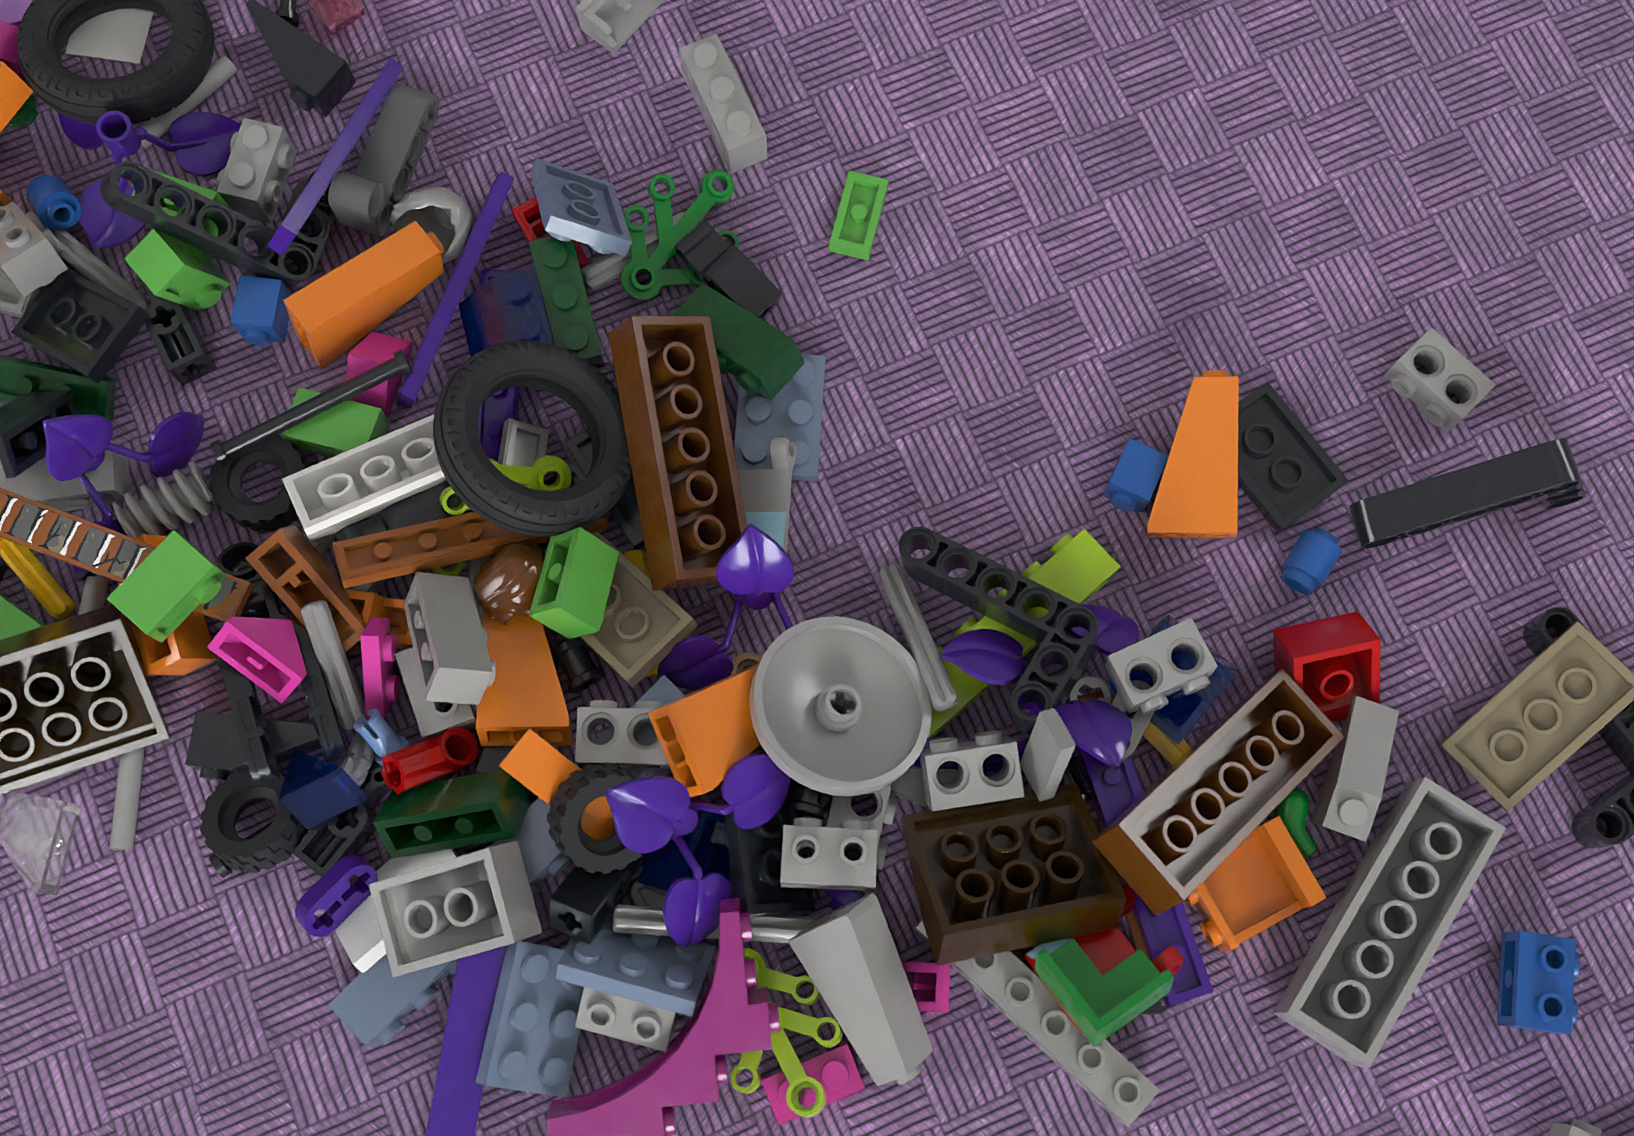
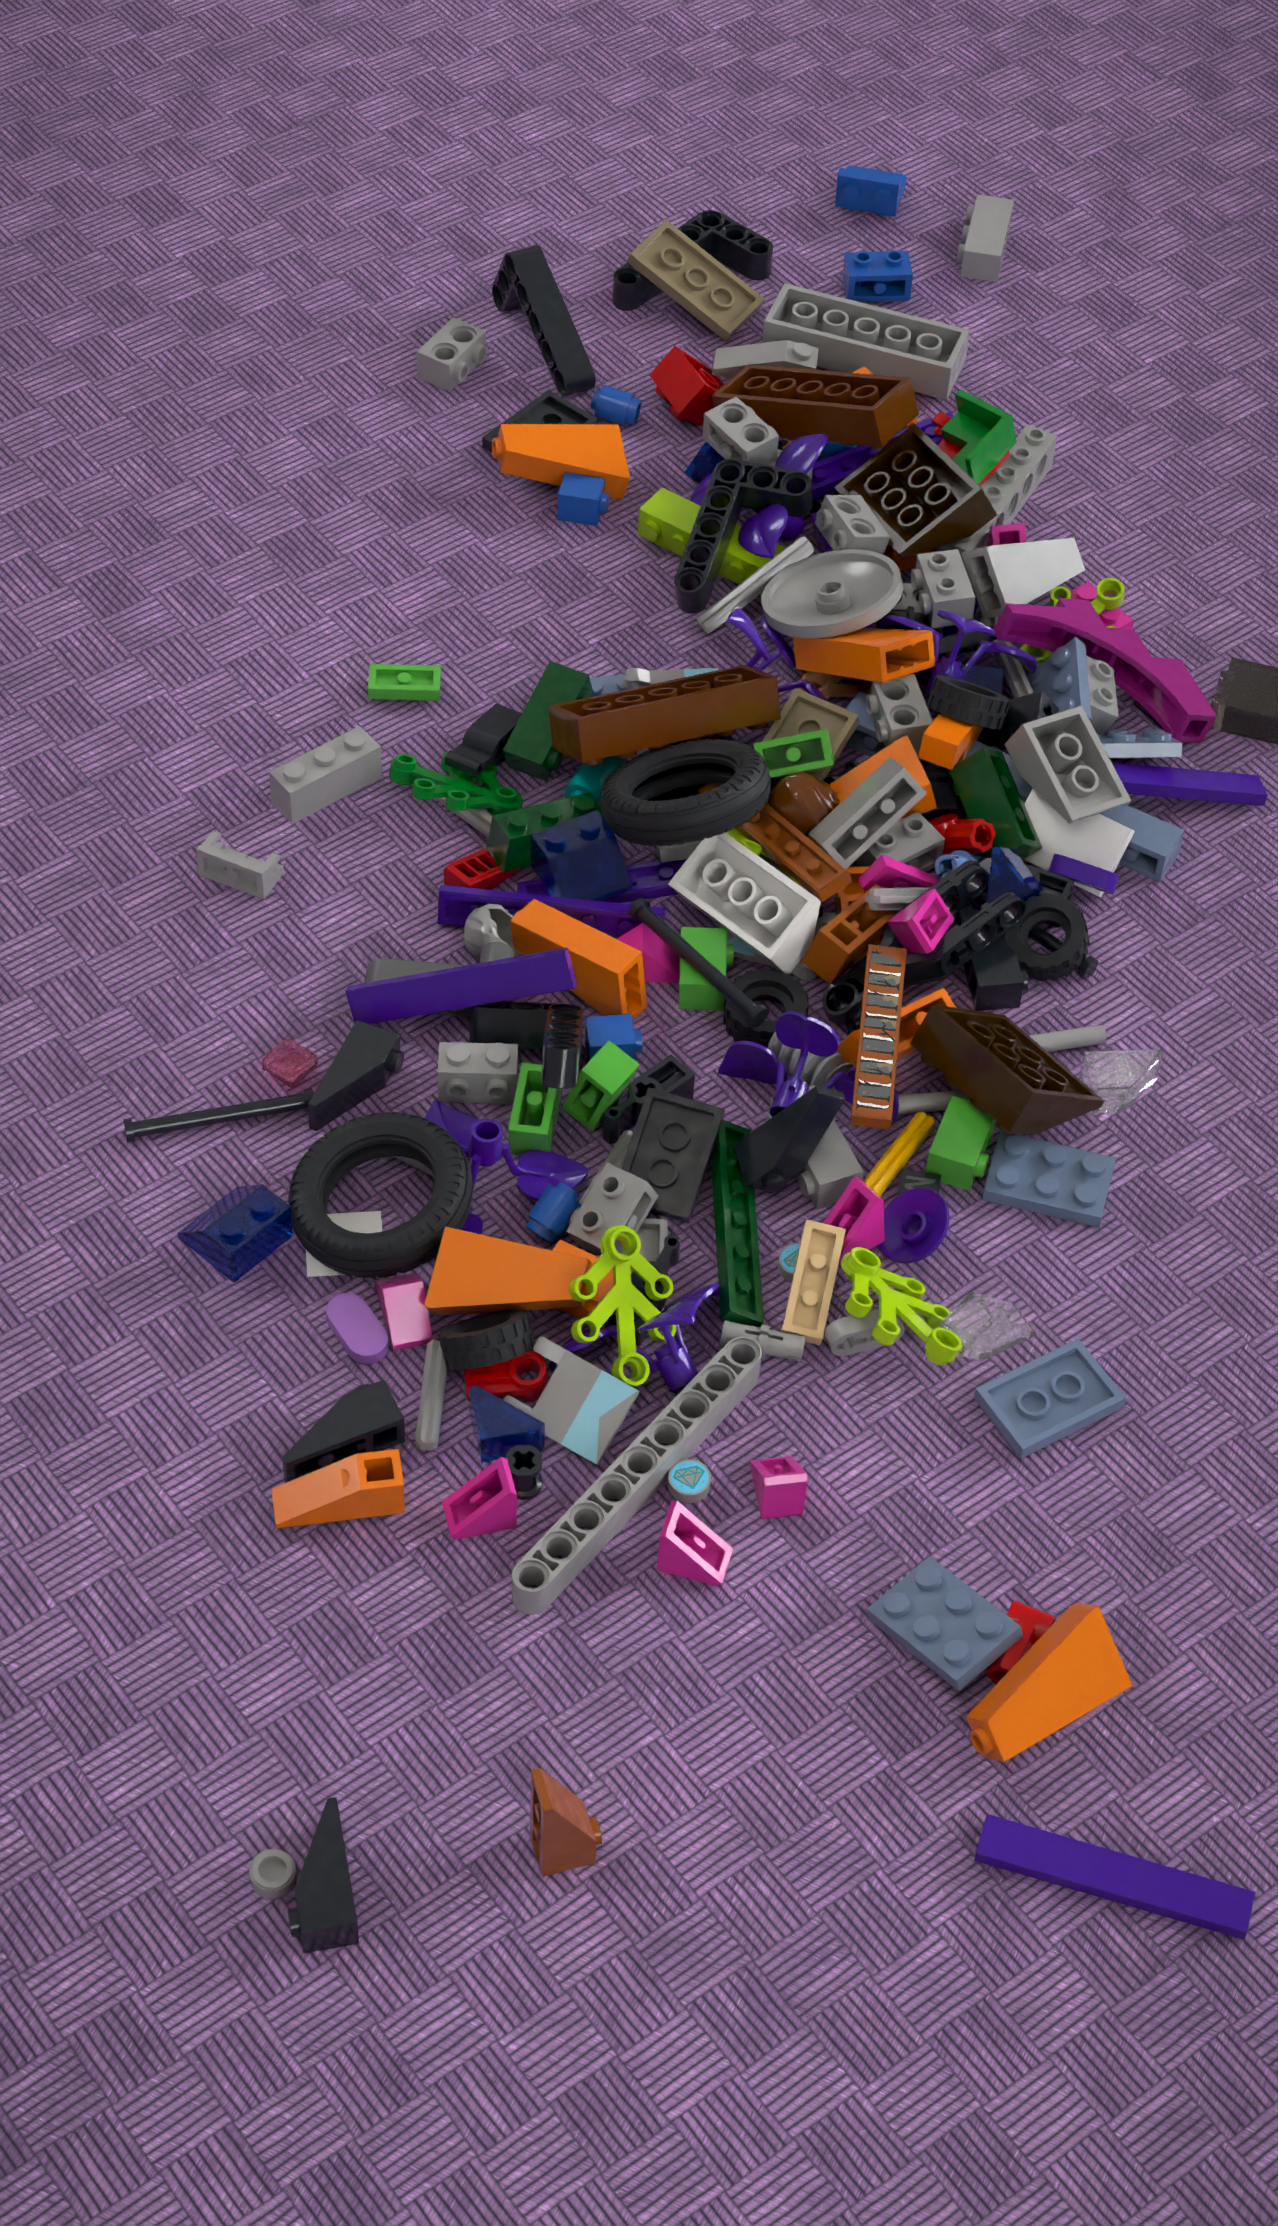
camera: 105 degrees left, 25 degrees down
(167, 587) = (896, 972): bright green brick -> none
(580, 208) = (465, 821): sand blue plate -> none
(1047, 754) = (827, 473): light grey tile -> none

